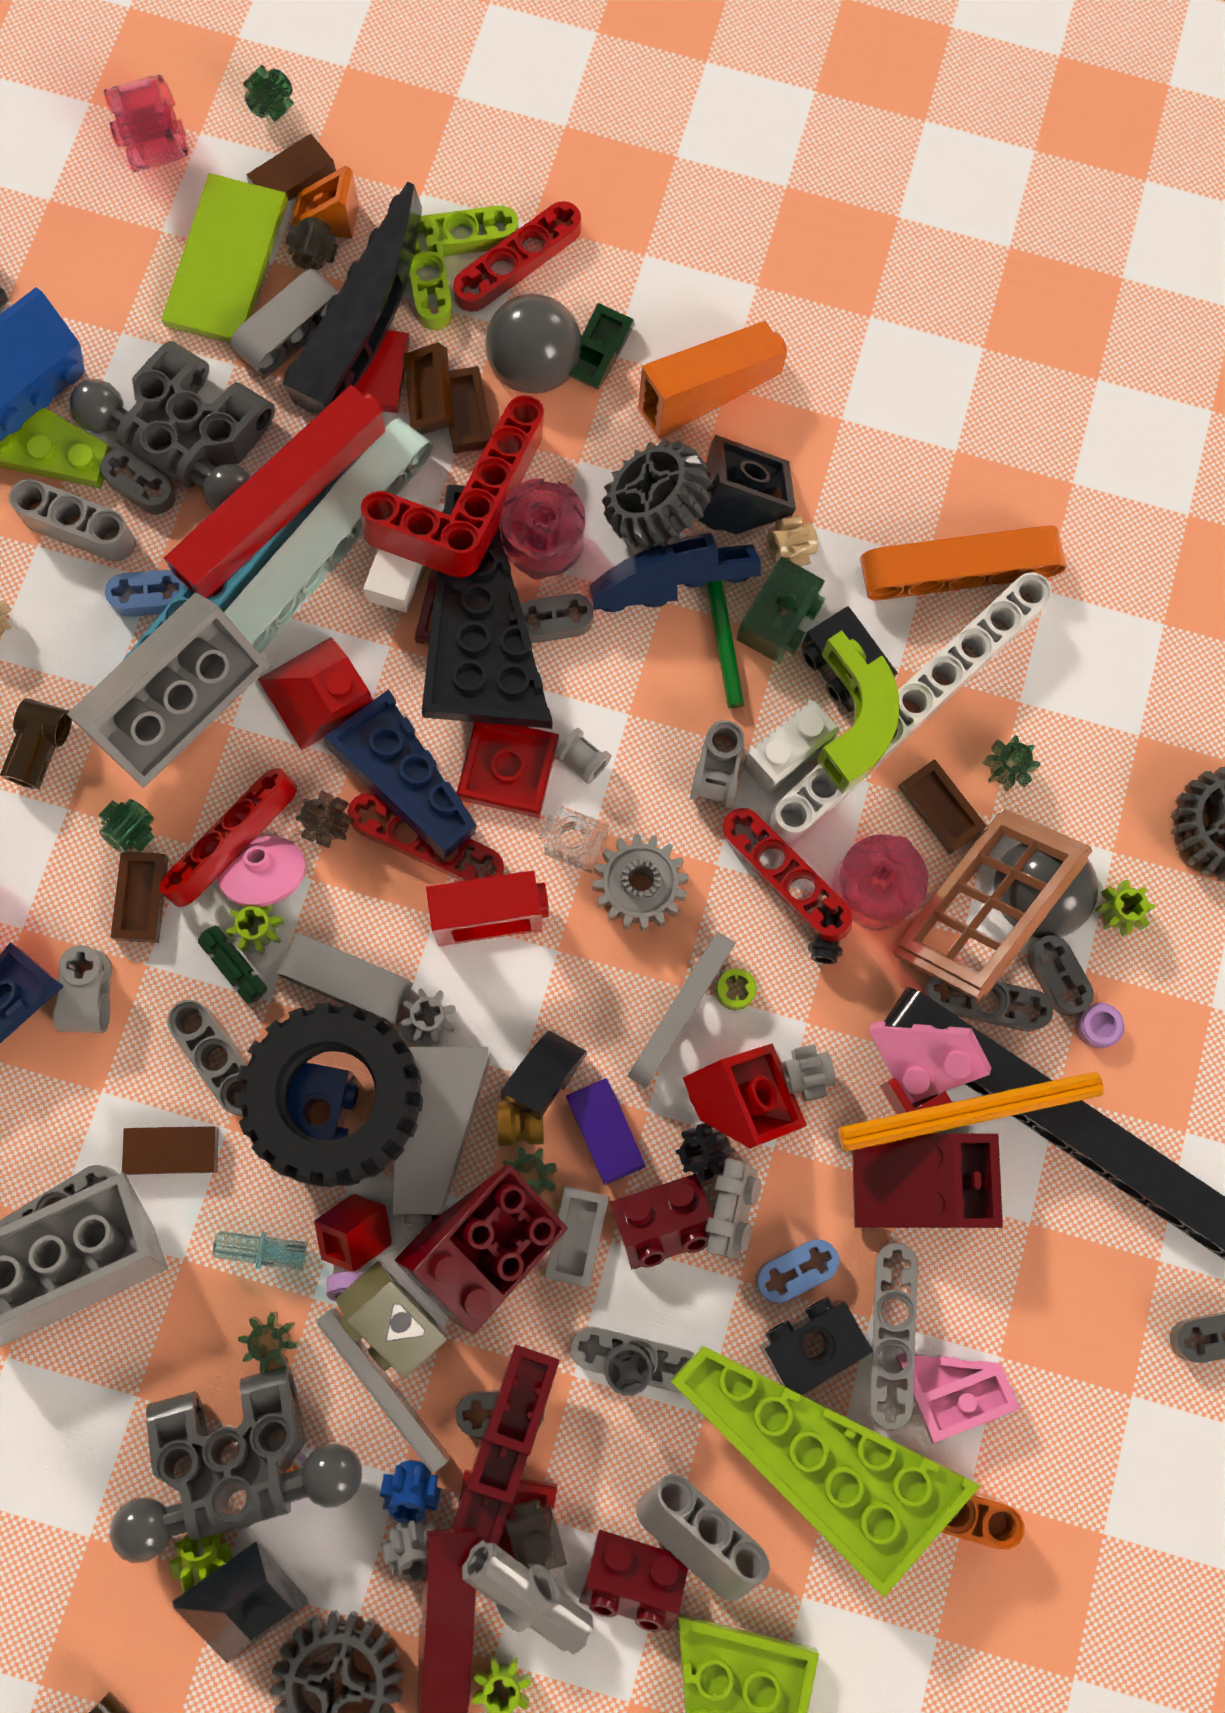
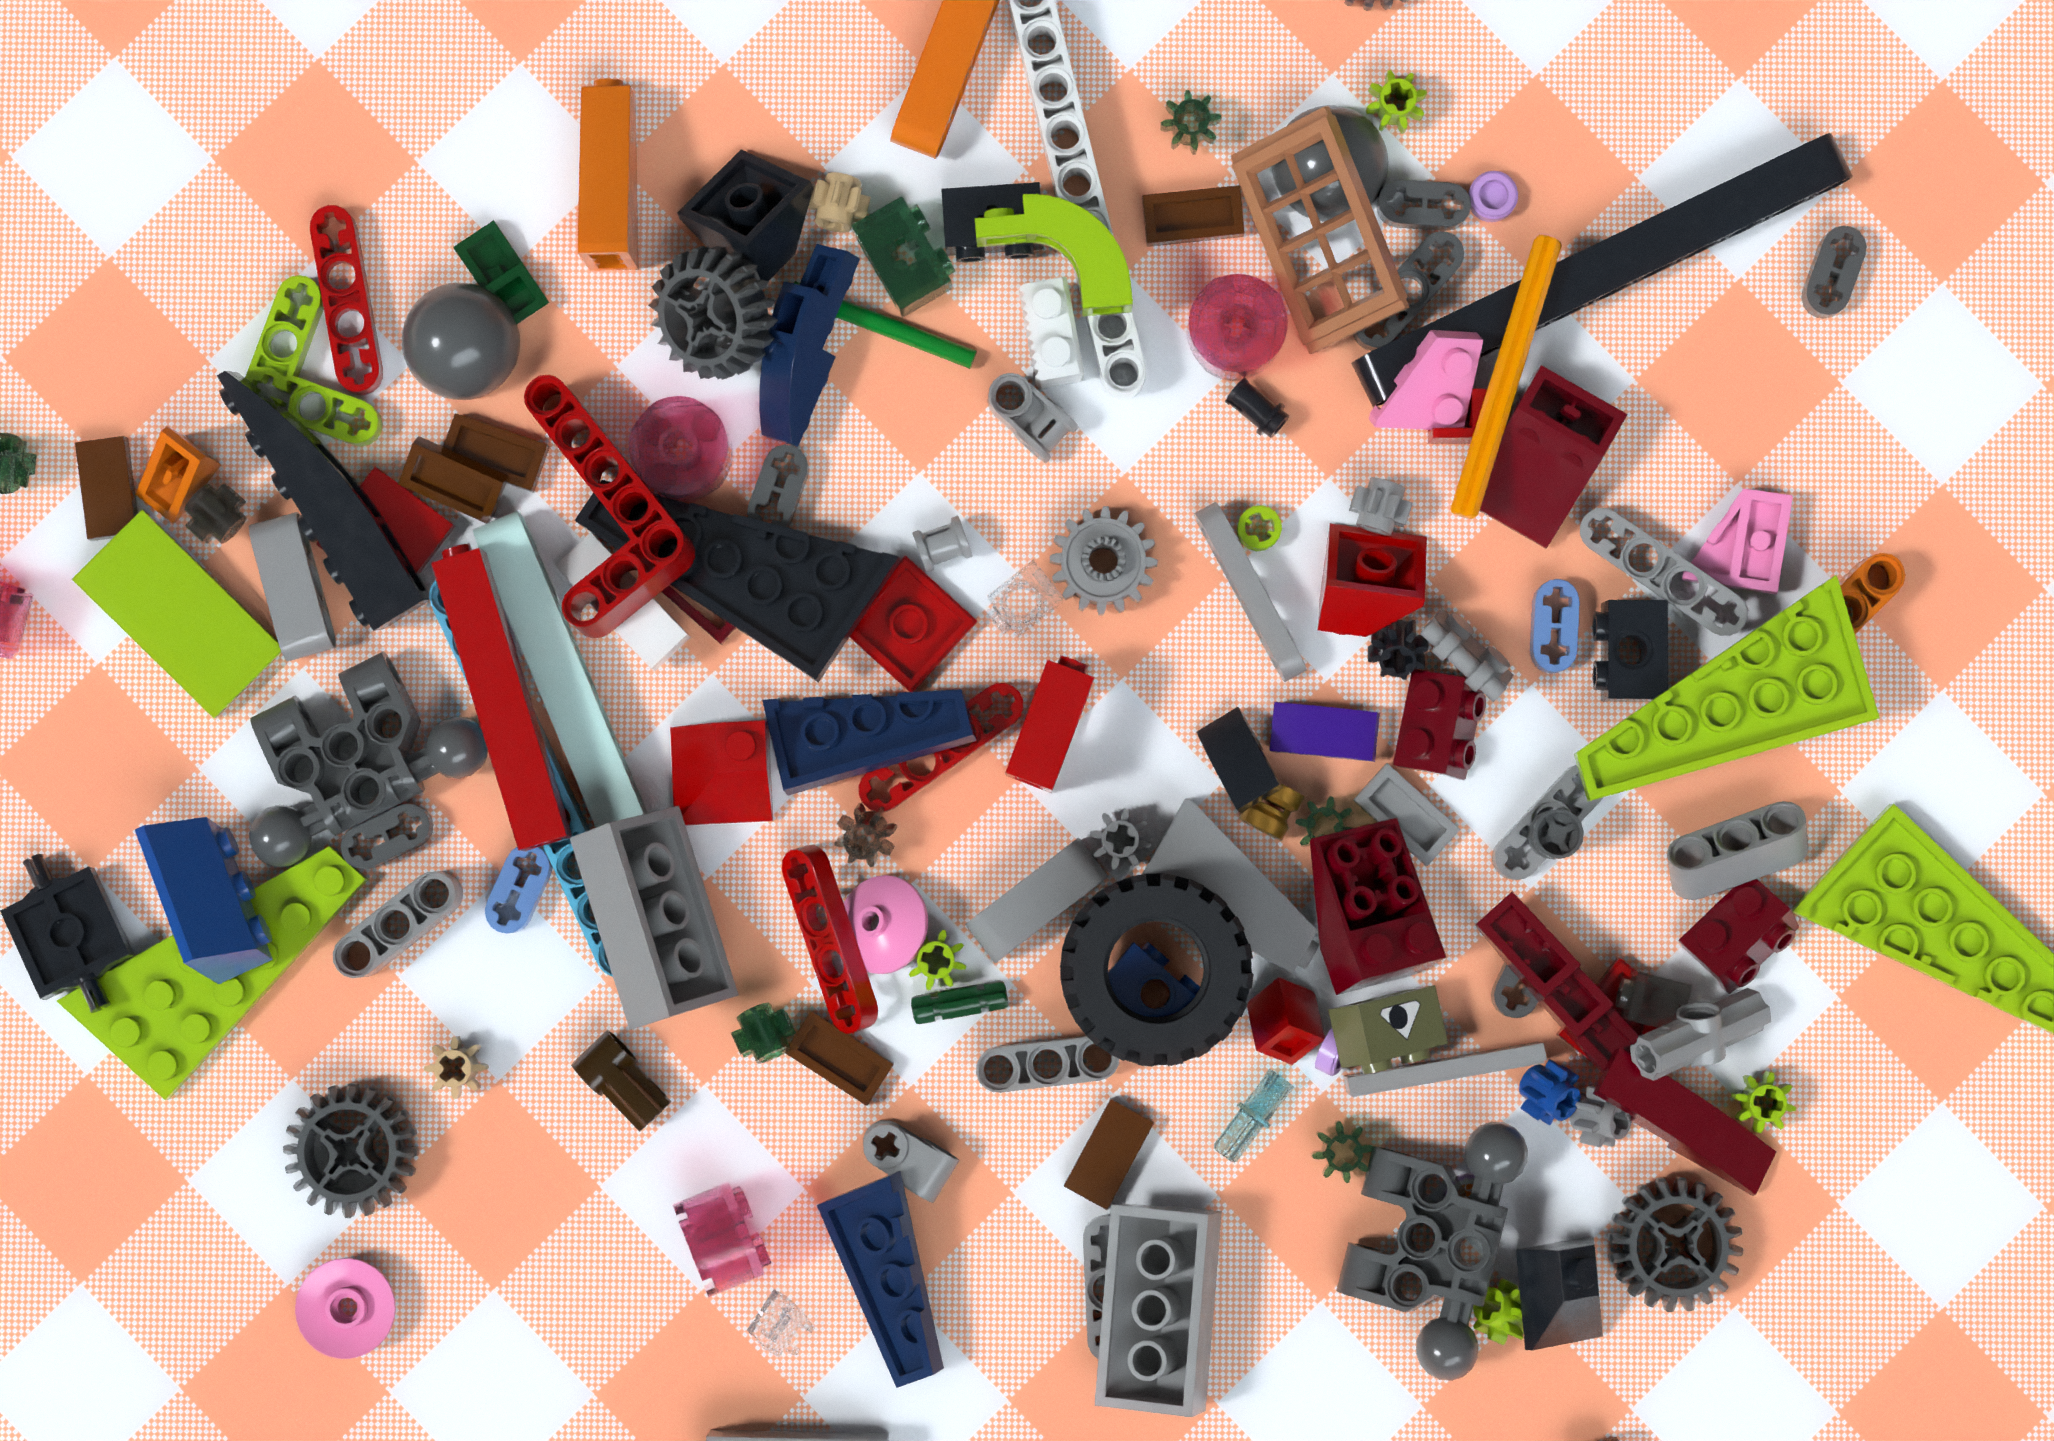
camera: 50 degrees left, 10 degrees up
(791, 870) = (1176, 408): red beam -> none

